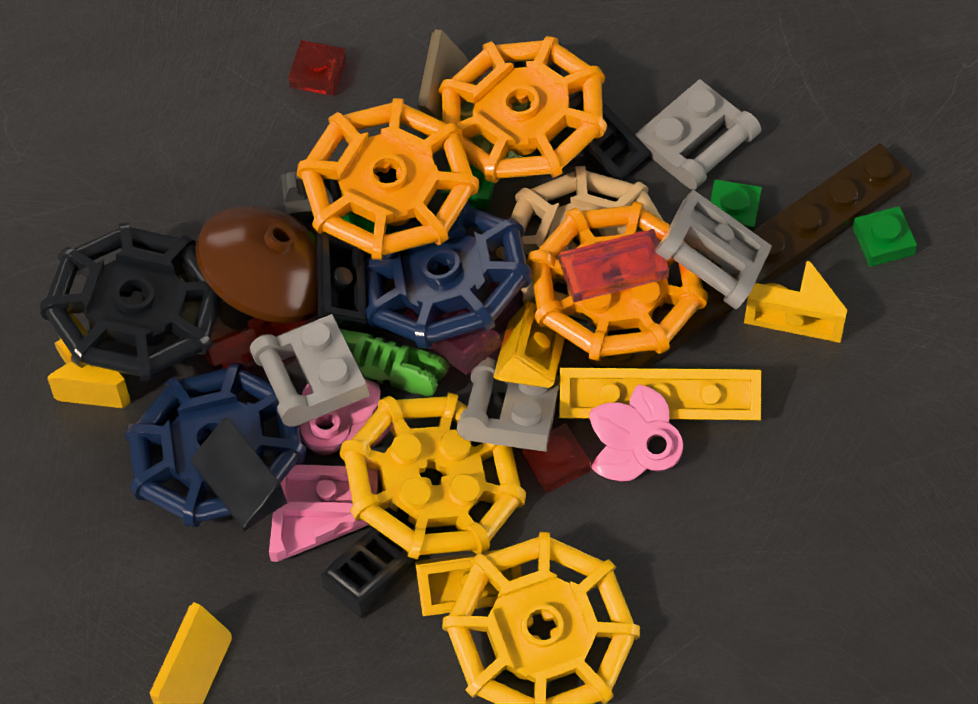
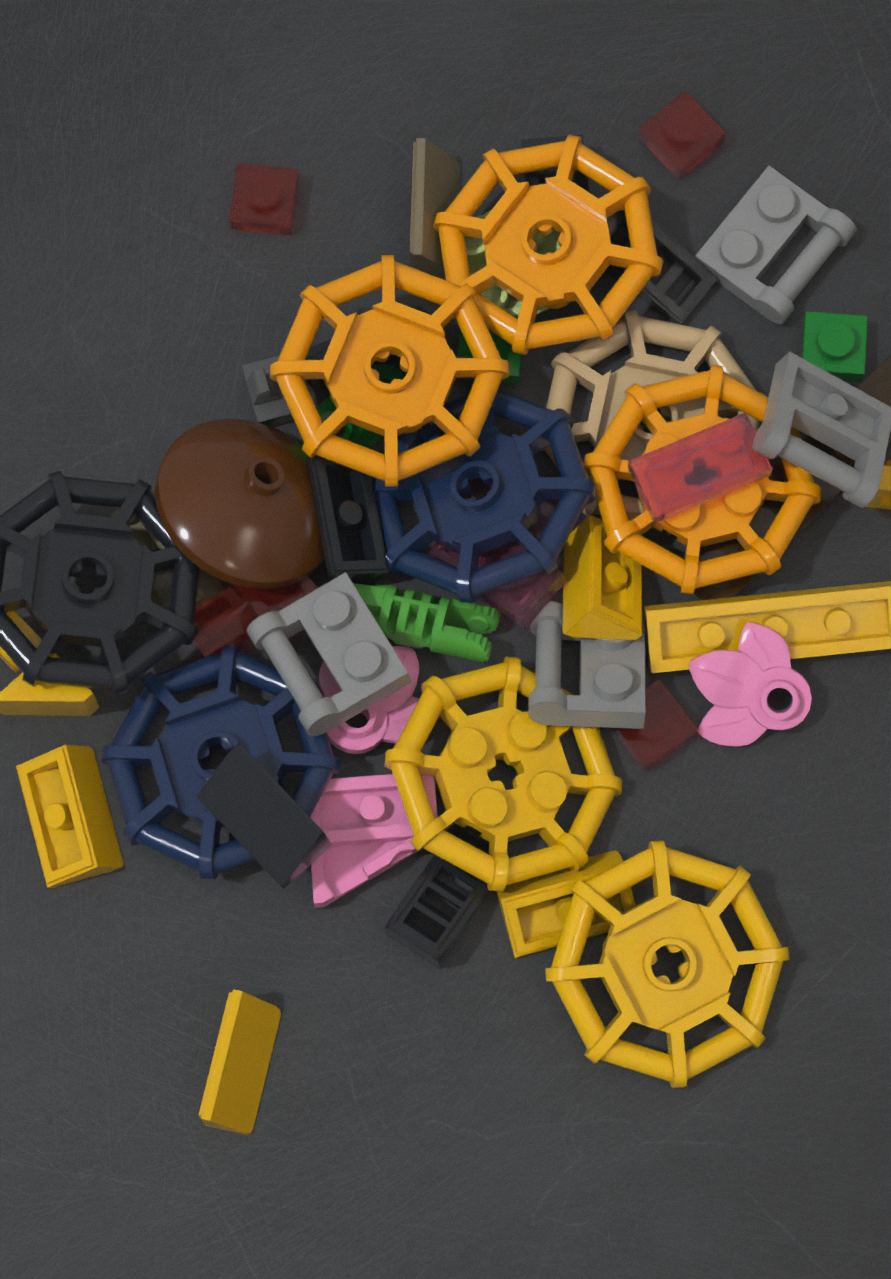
camera: 10 degrees left, 15 degrees up
(93, 474) = (69, 815): none -> yellow slope
(637, 55) = (681, 134): none -> clear red plate

